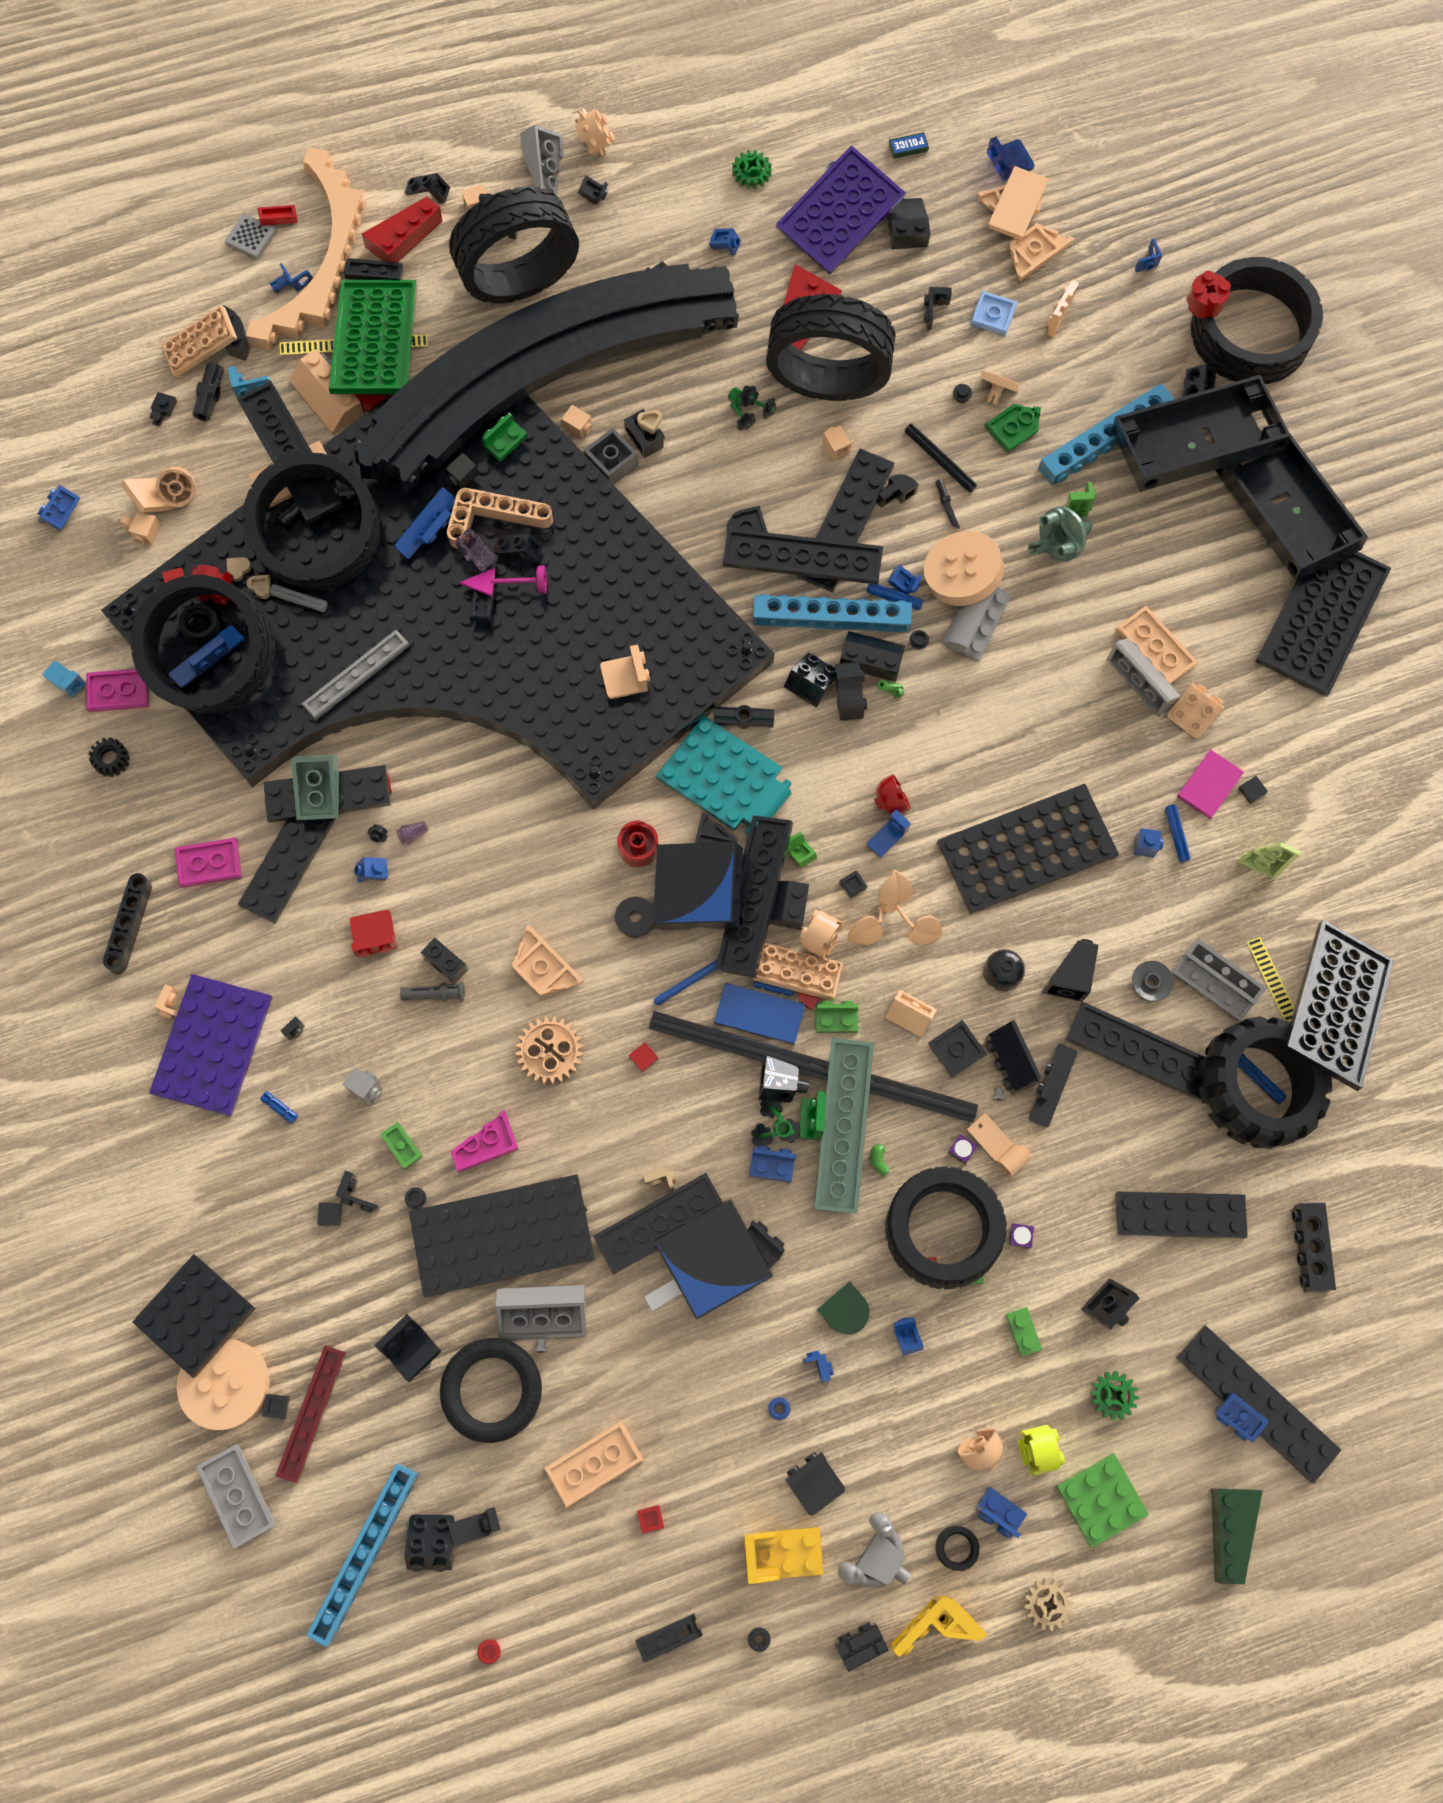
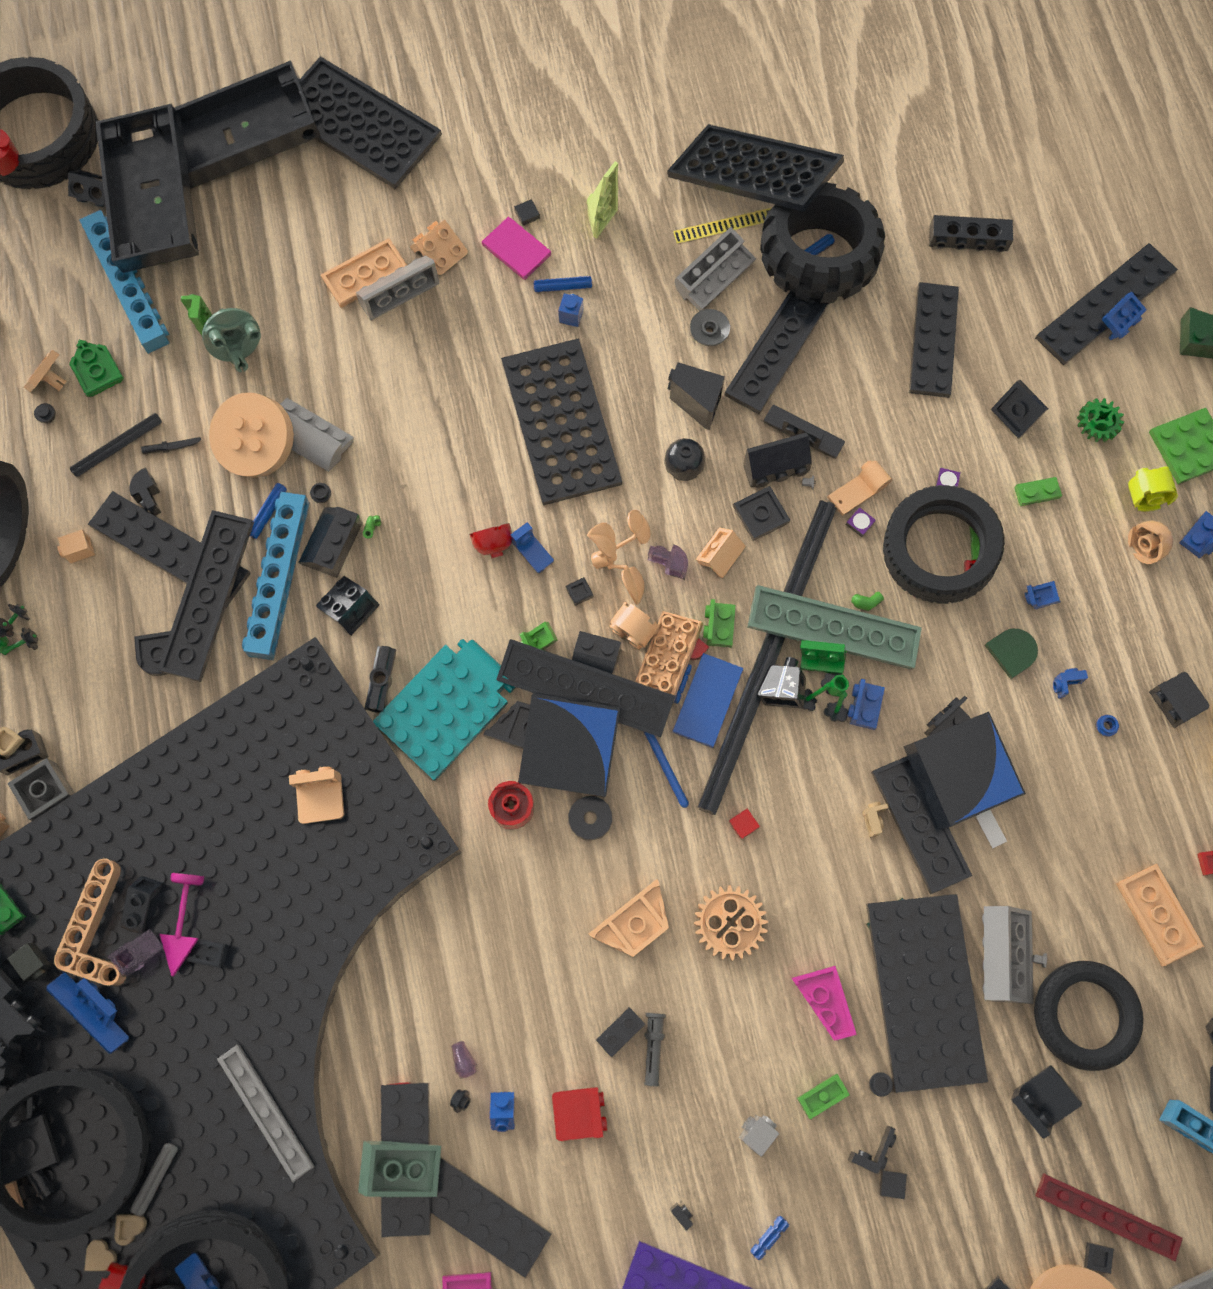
camera: 80 degrees left, 0 degrees up
(849, 688) = (362, 565): black brick -> none
(894, 969) = (675, 561): none -> clear purple brick
(904, 580) = (252, 498): blue bracket -> none

